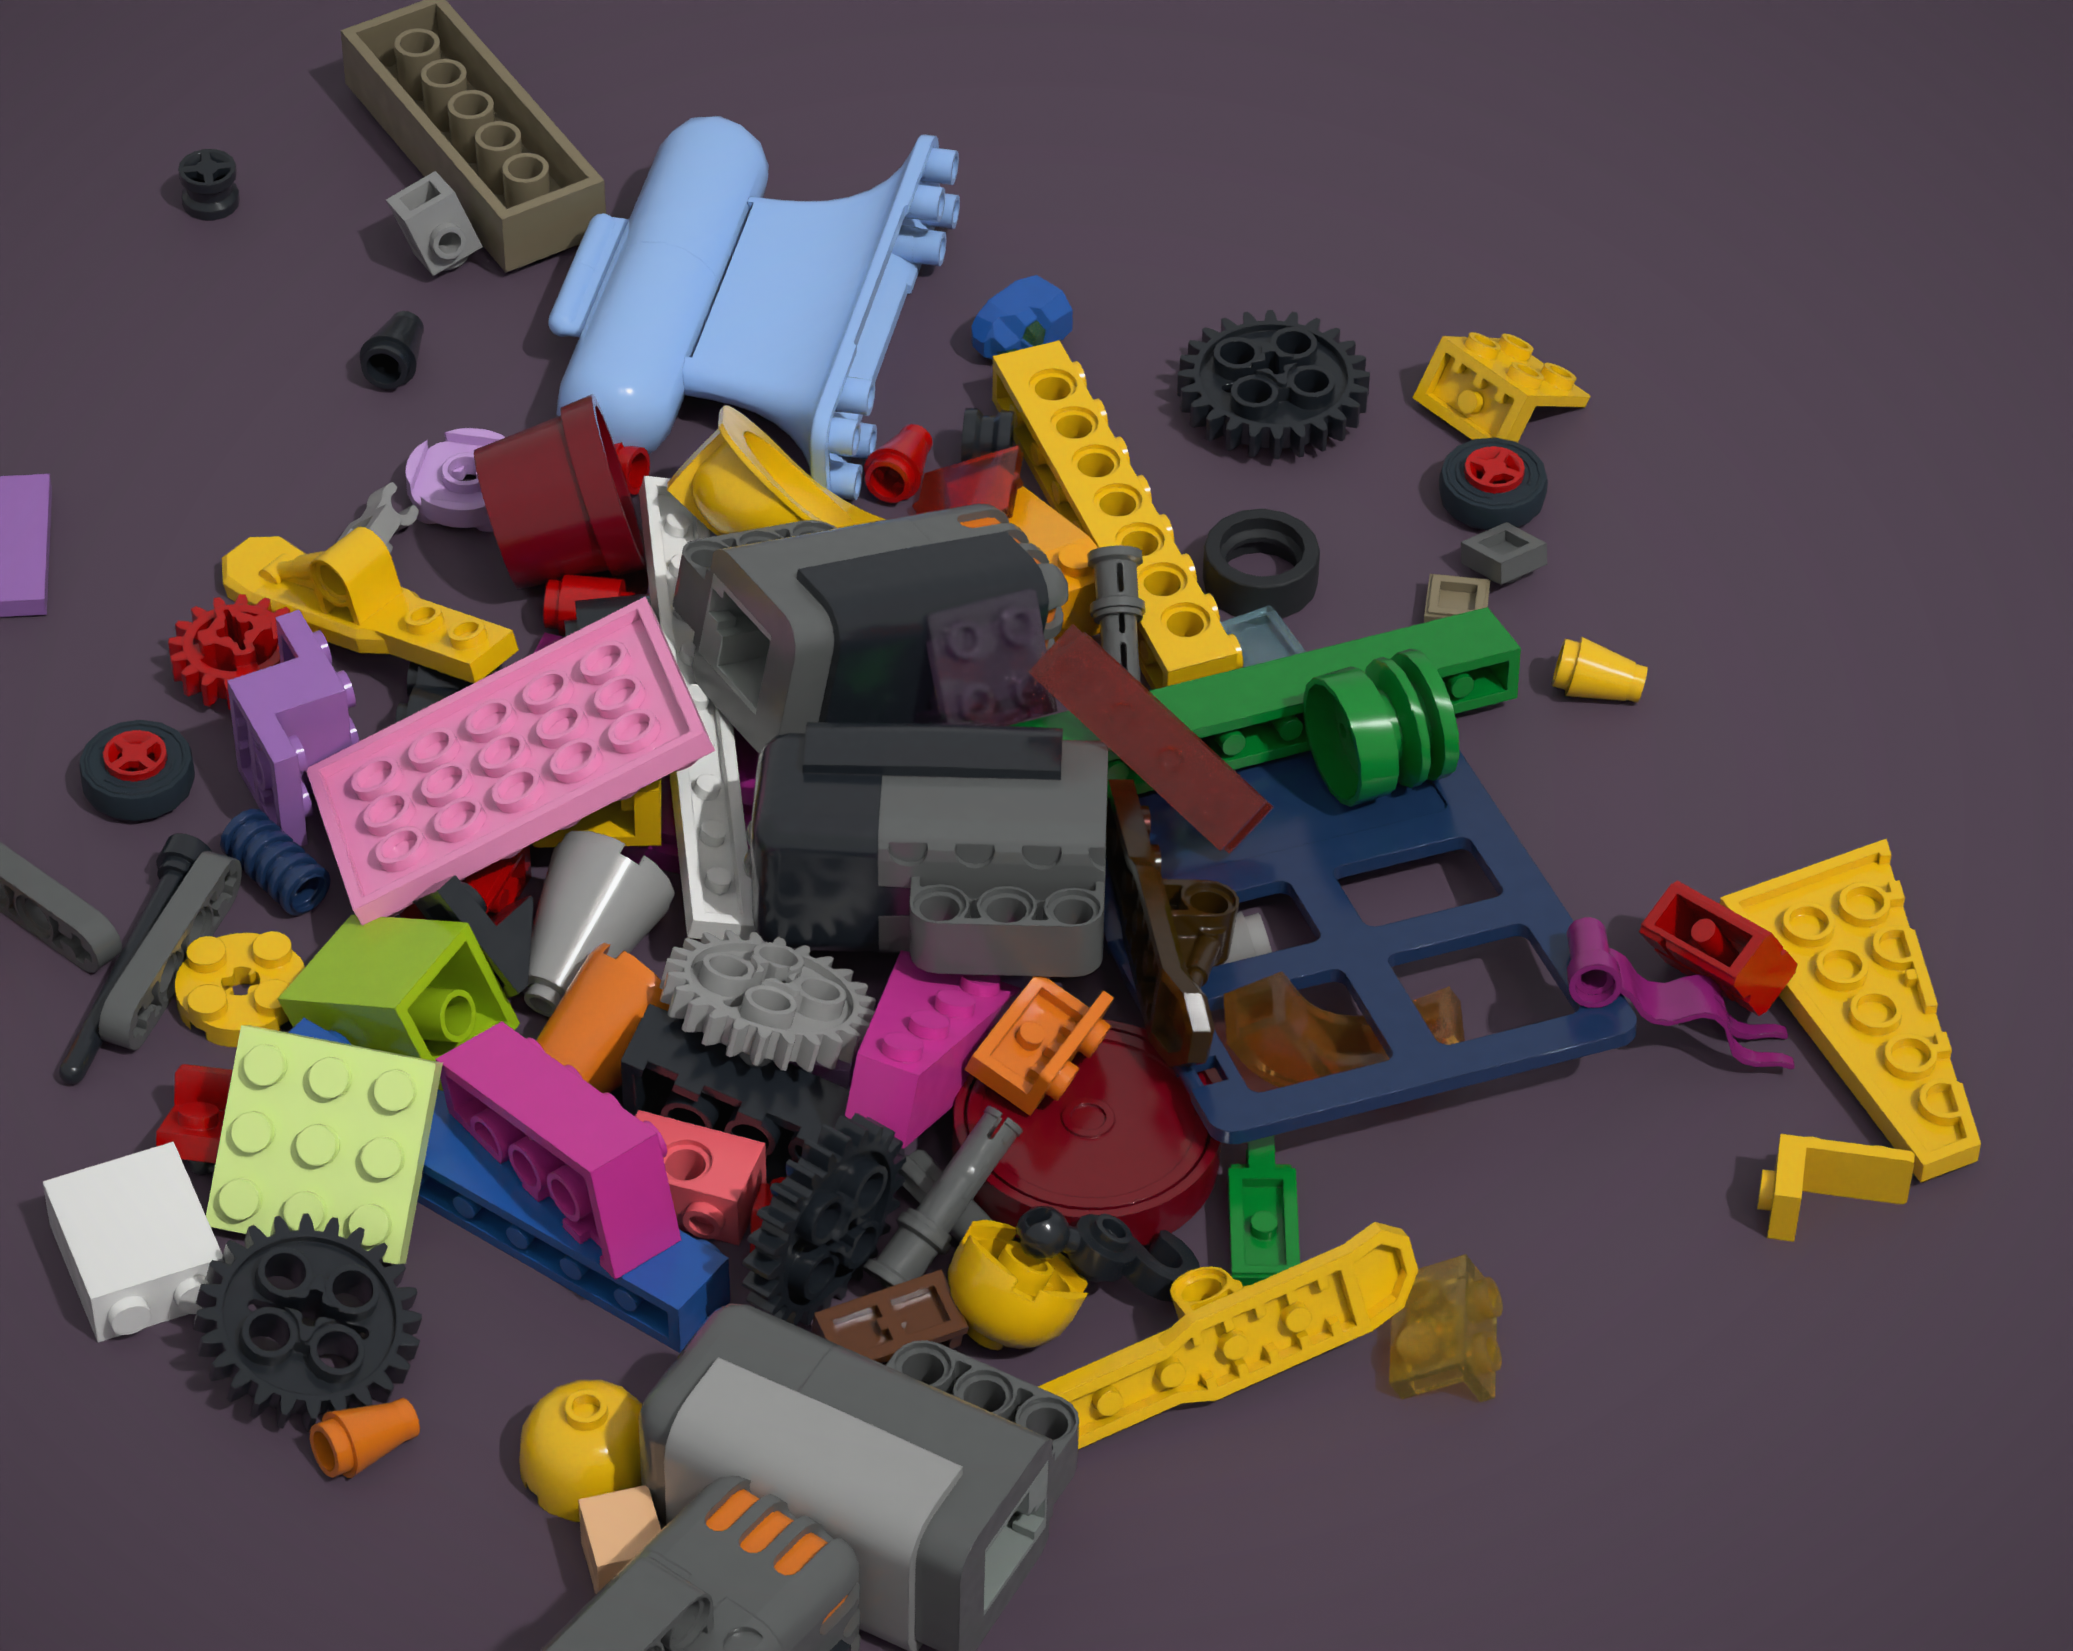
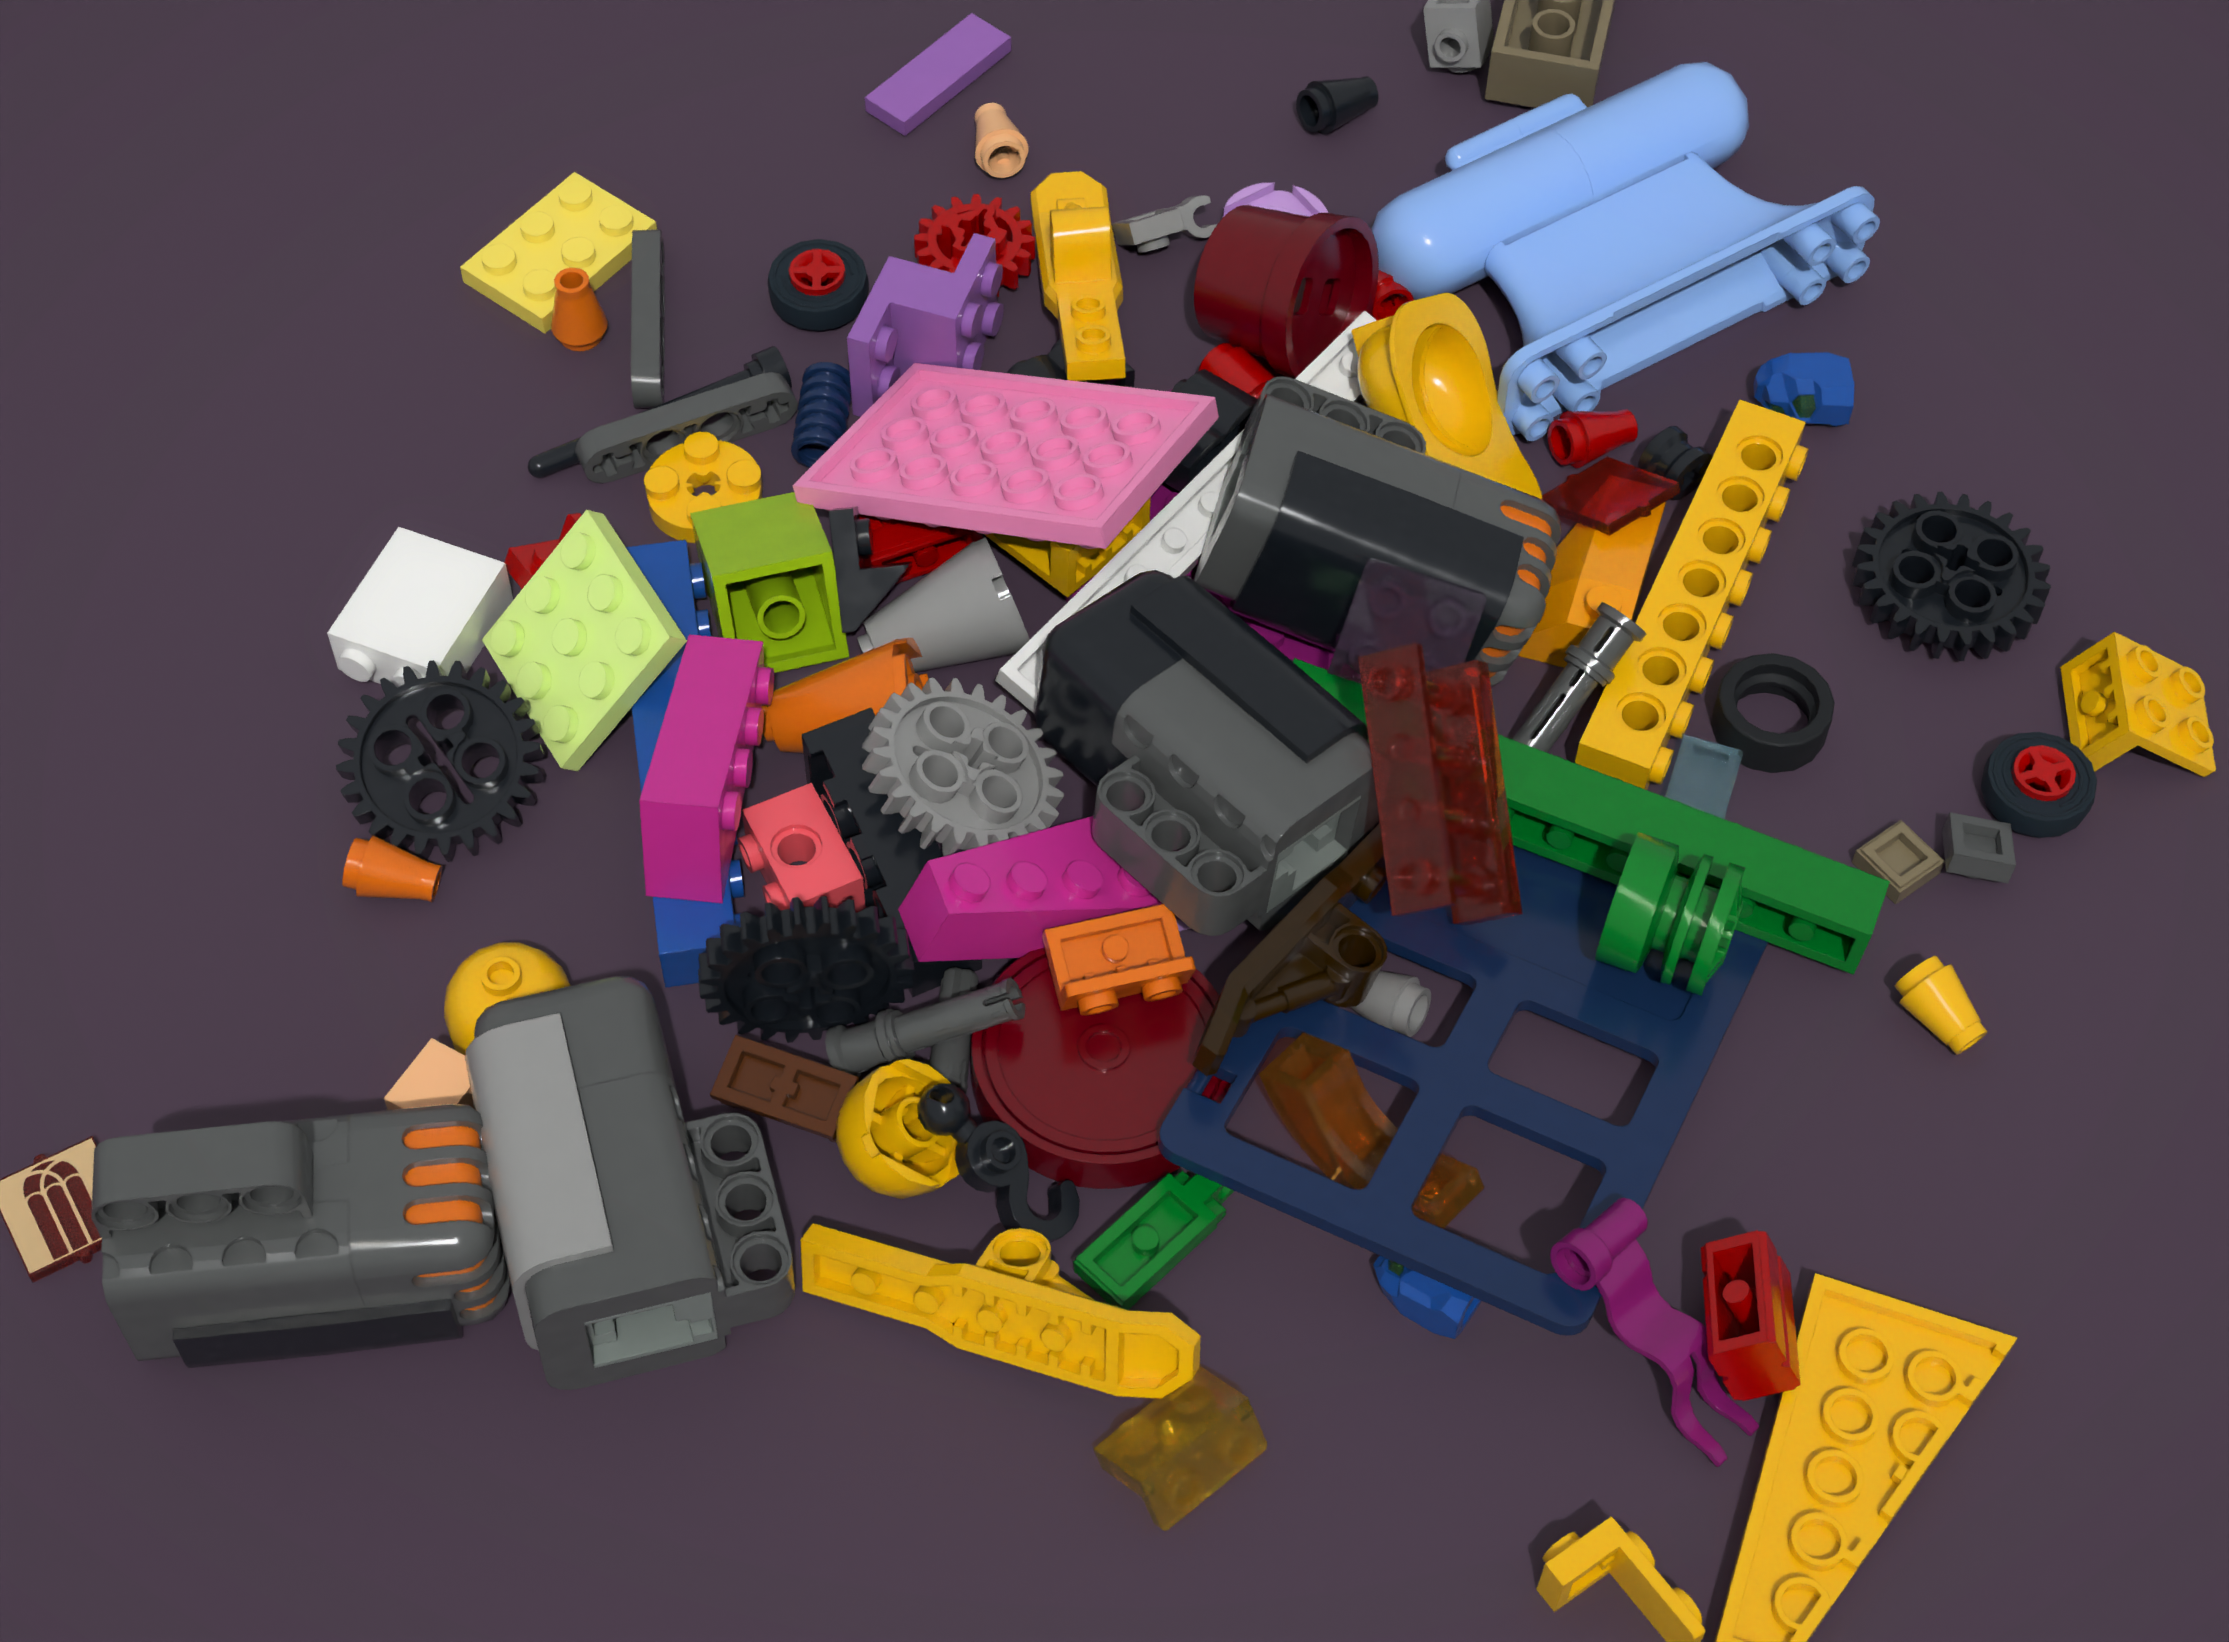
camera: 45 degrees right, 10 degrees up
(148, 560) = (999, 144): none -> light nougat cone
(1485, 1111) = (1425, 1299): none -> blue rock

